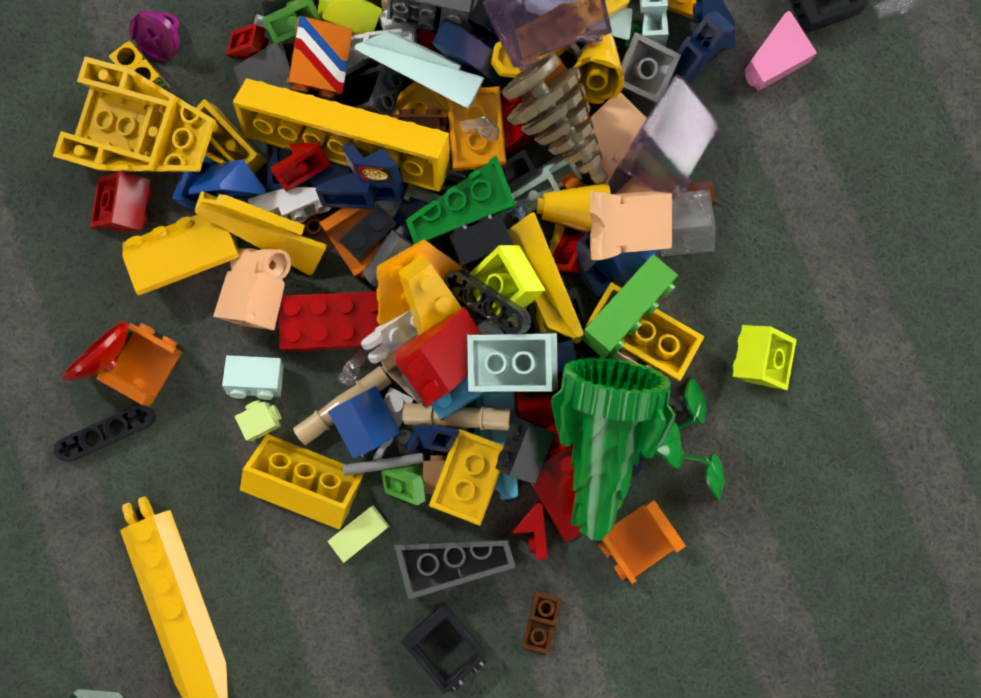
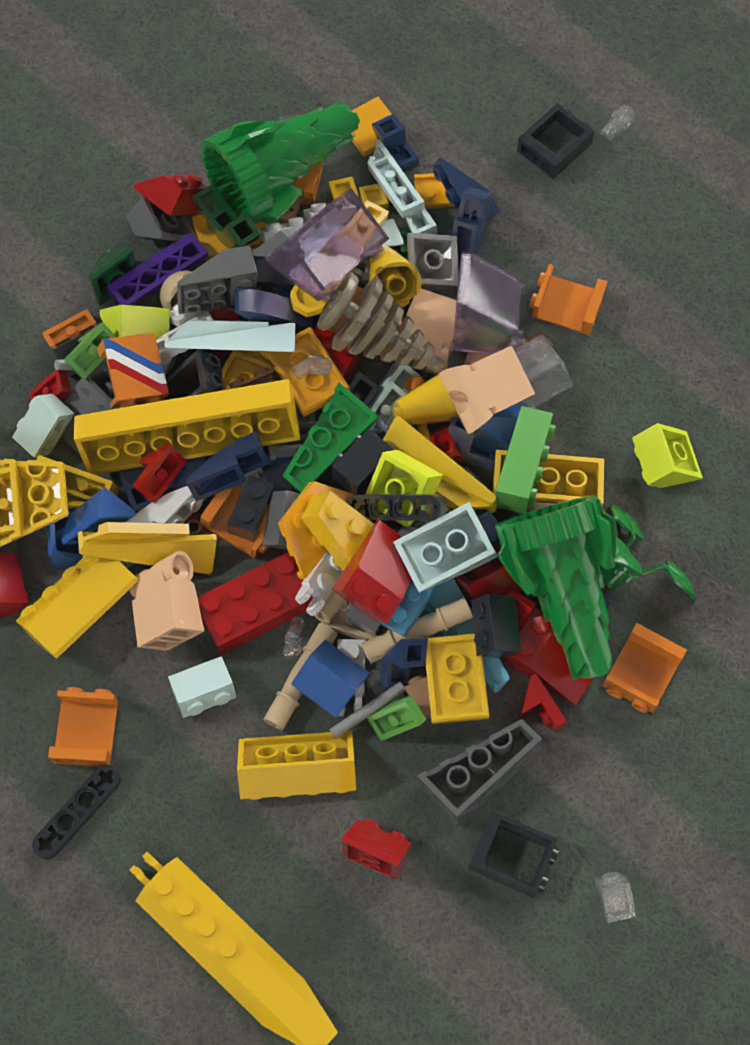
camera: 25 degrees left, 15 degrees down
(99, 355) = (42, 730): red dish -> none
(224, 70) = (42, 425): none -> light aqua brick
(258, 420) = (227, 725): yellowish green brick -> none
(328, 591) = (376, 848): none -> red slope
(358, 533) = (375, 788): yellowish green slope -> none
(374, 168) = (236, 438): dark blue slope -> none
(541, 623) = (592, 790): reddish brown slope -> none
(752, 164) = (567, 302): none -> orange panel
(780, 54) = (542, 202): bright pink slope -> none

